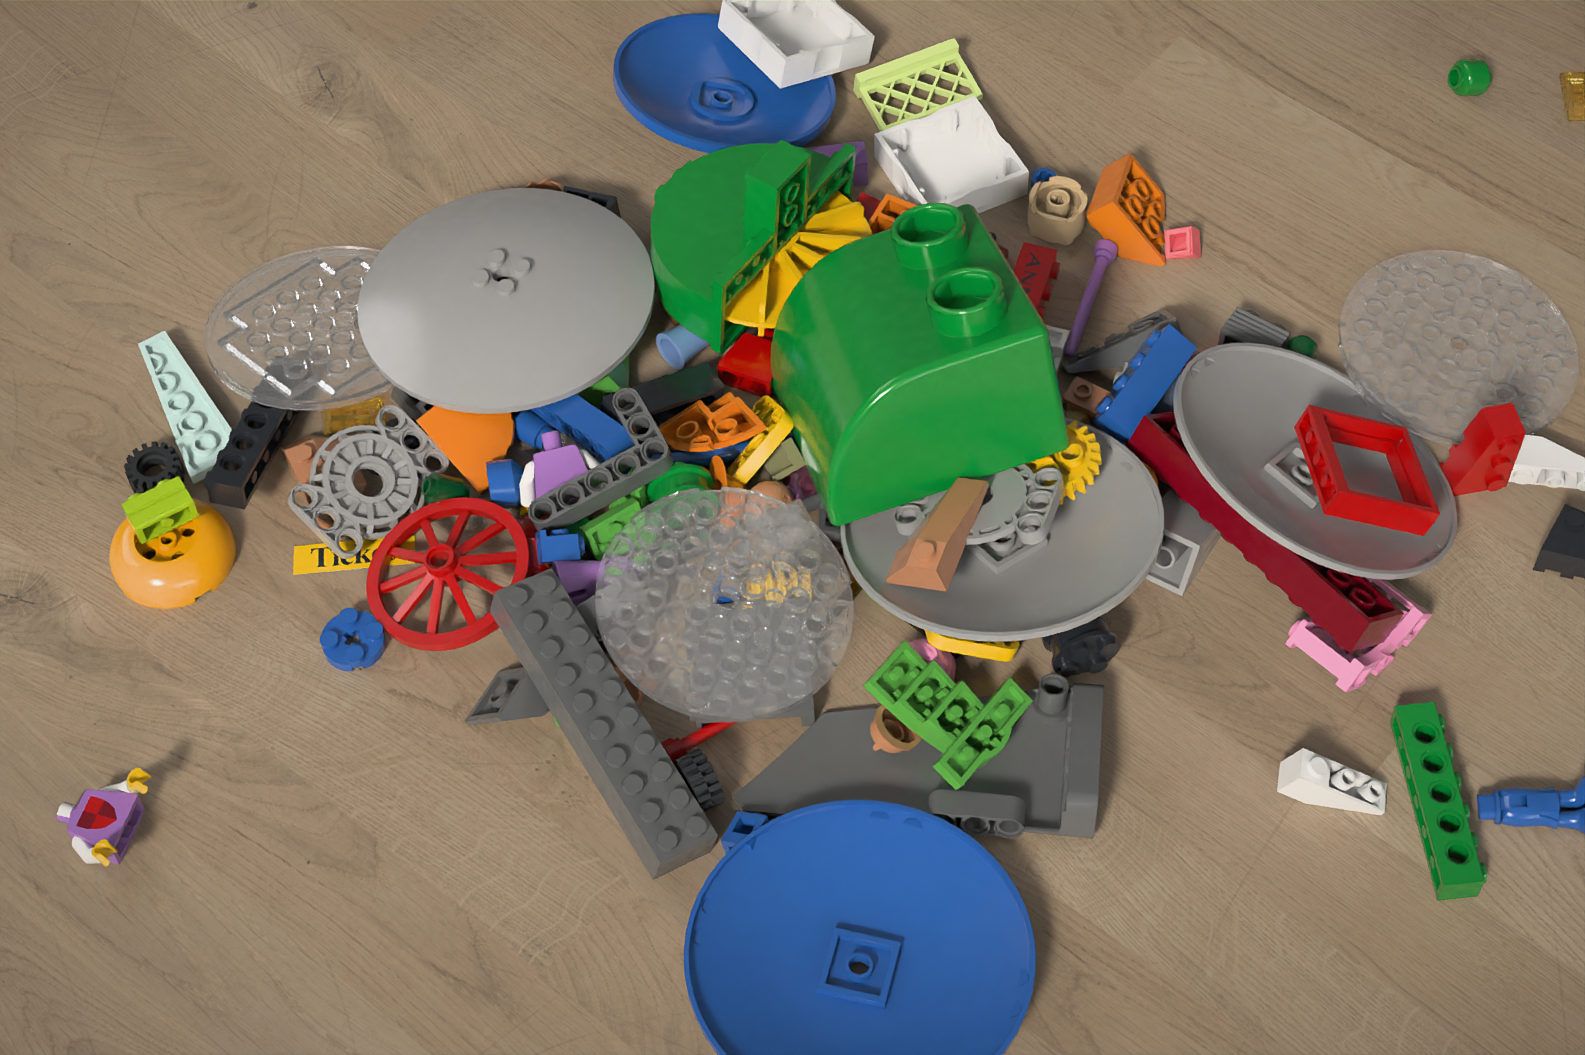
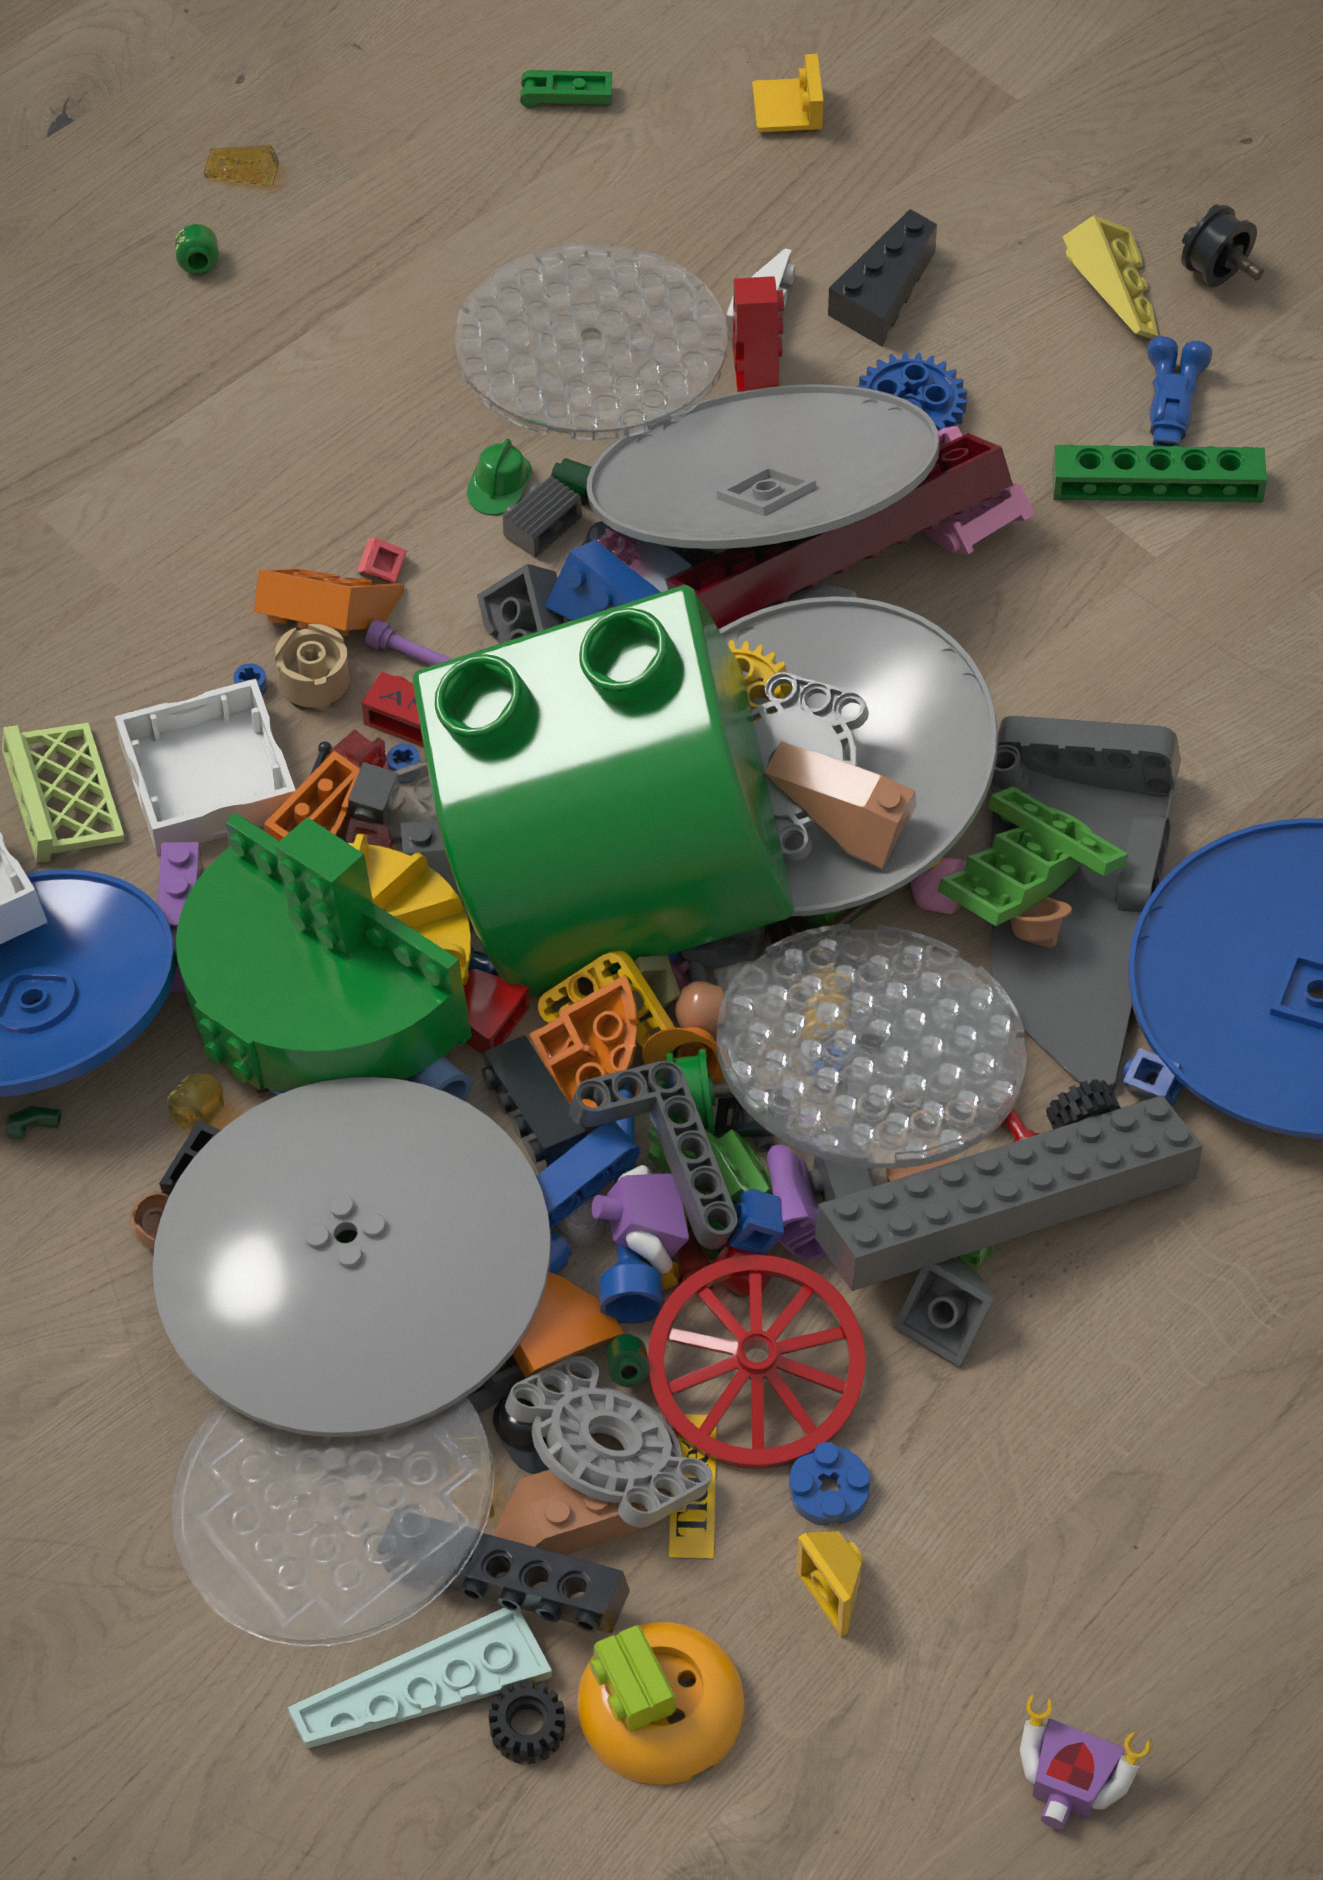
camera: 85 degrees left, 0 degrees up
(260, 639) = (831, 1574): none -> yellow slope
(632, 125) = (31, 1116): none -> dark green arm
(642, 203) = (195, 1099): none -> clear yellow head
(1295, 309) = (498, 478): none -> green piece
(1322, 427) = (783, 451): red window -> none
(1330, 784) = (1132, 556): white slope -> none
(1468, 592) = (923, 385): none -> blue gear

